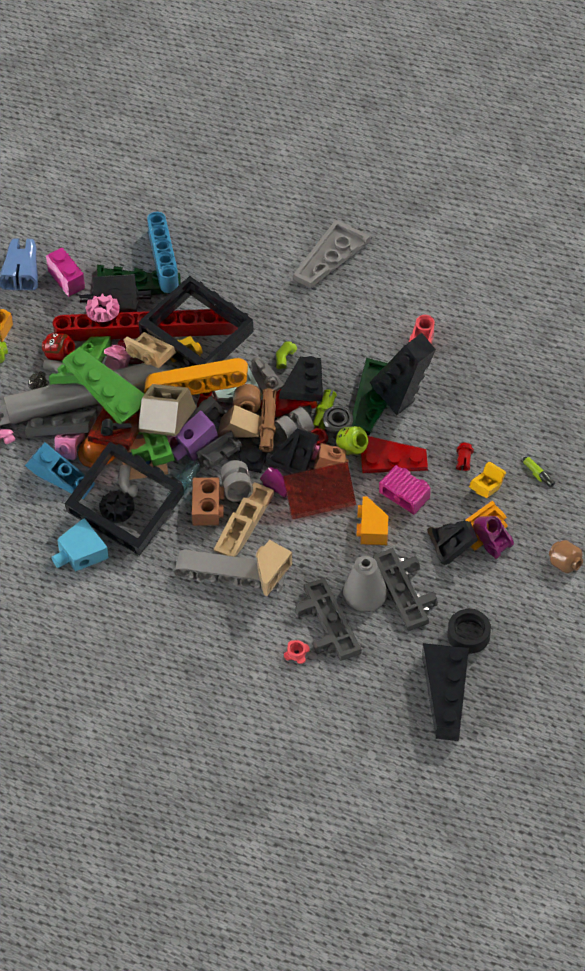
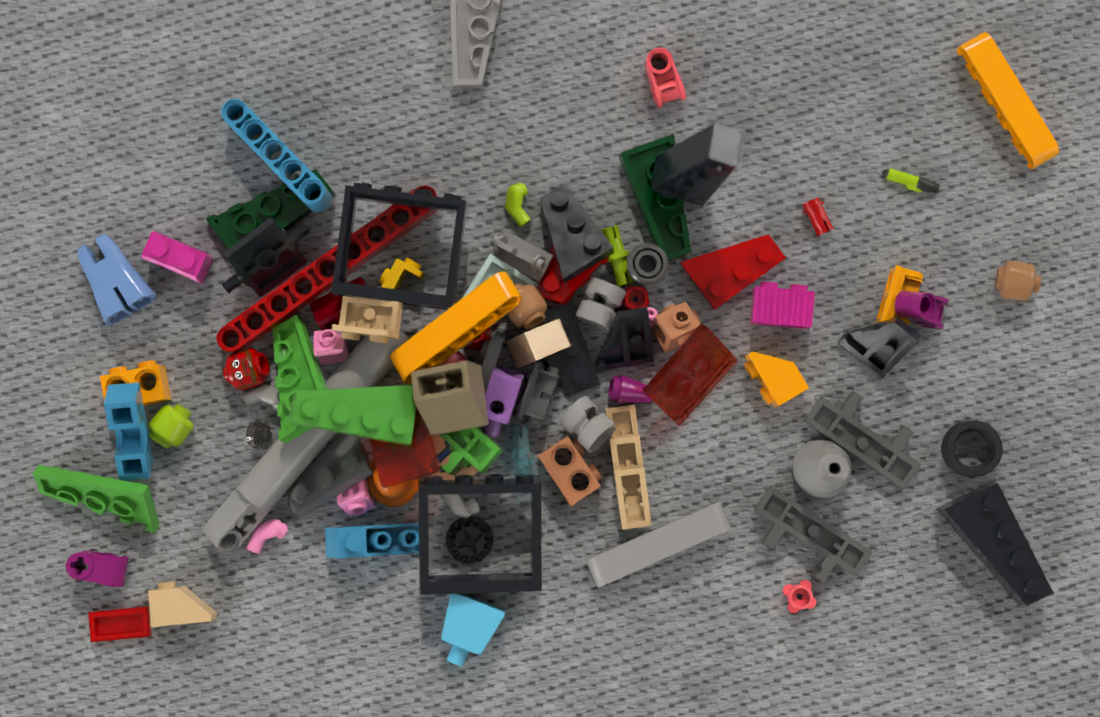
camera: 30 degrees left, 30 degrees up
(100, 314) = (269, 302): bright pink gear -> none
(108, 427) = (398, 461): black hand -> none
(267, 426) = (570, 321): medium nougat pin -> none
(272, 564) = (713, 521): tan slope -> none
(352, 440) = (683, 283): lime head -> none
(488, 481) = (867, 235): yellow bracket -> none

